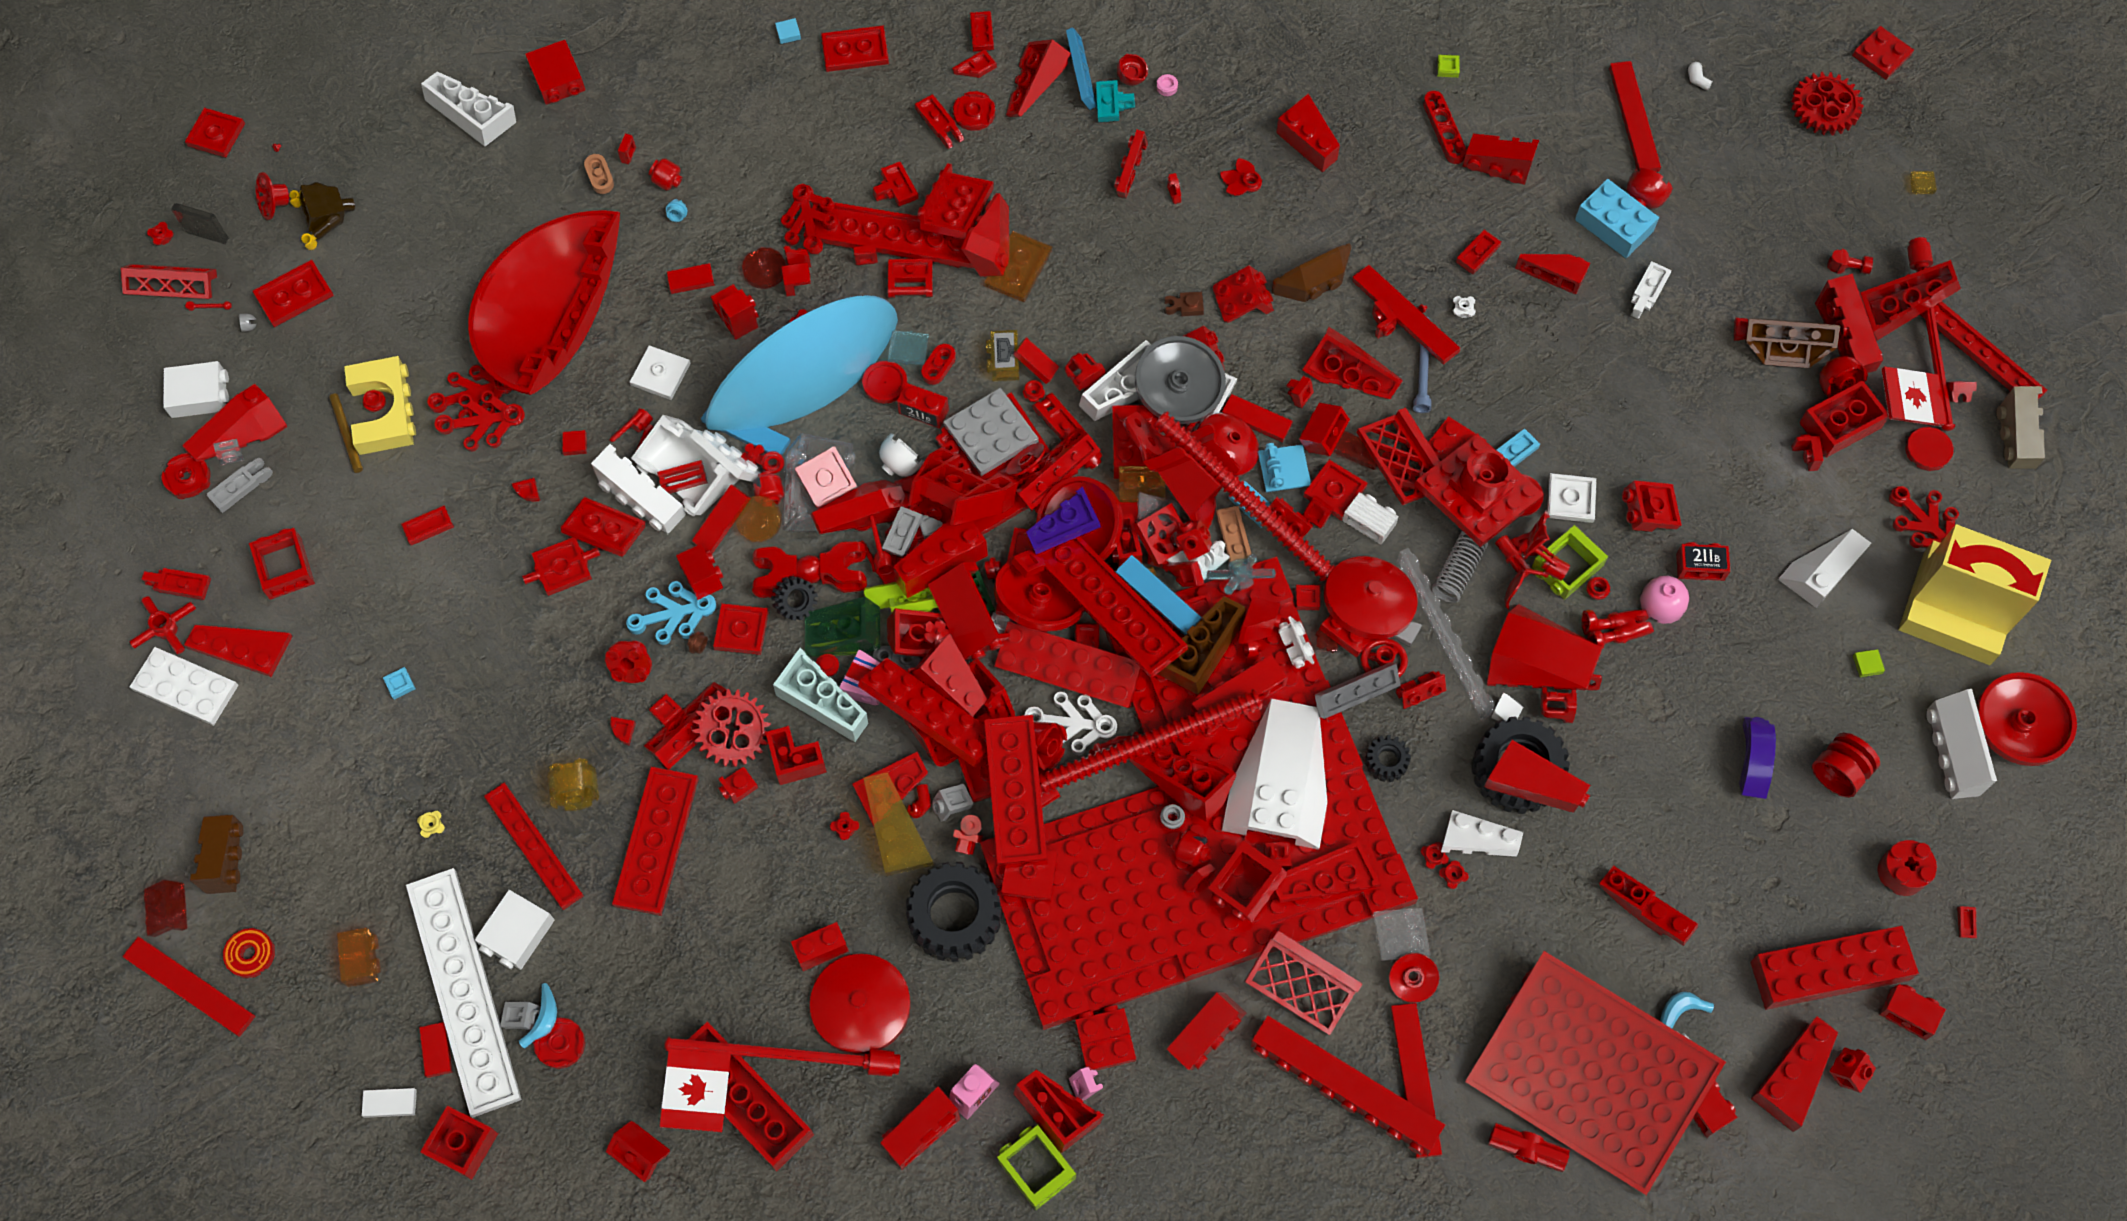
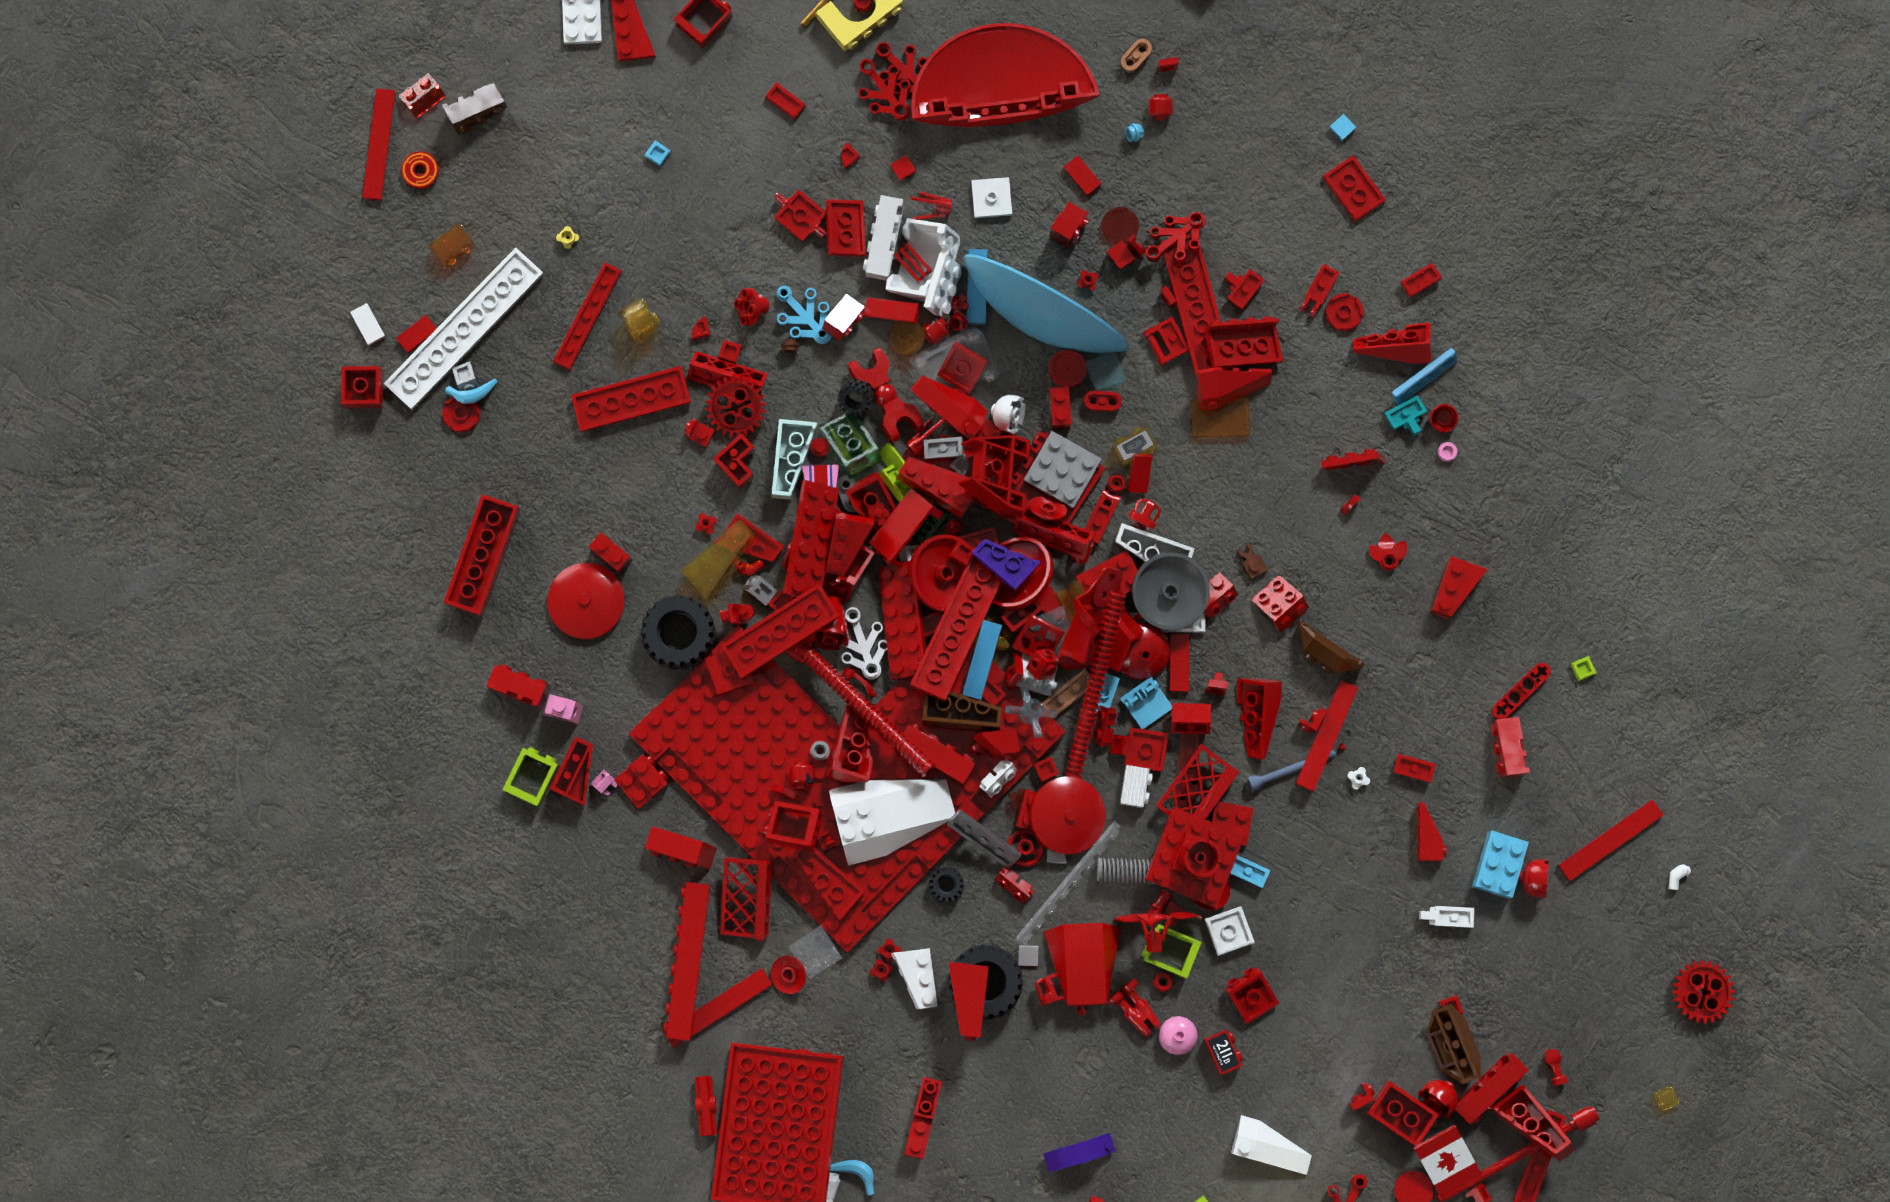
camera: 60 degrees right, 15 degrees up
(514, 930) = (520, 339): white brick -> none
(637, 1150) = (416, 505): red panel -> none
(700, 1071) = (478, 521): flag -> none
(741, 629) = (816, 371): red plate -> none
(976, 65) = (1387, 292): red tile -> none
(1883, 52) = (1782, 1019): red plate -> none

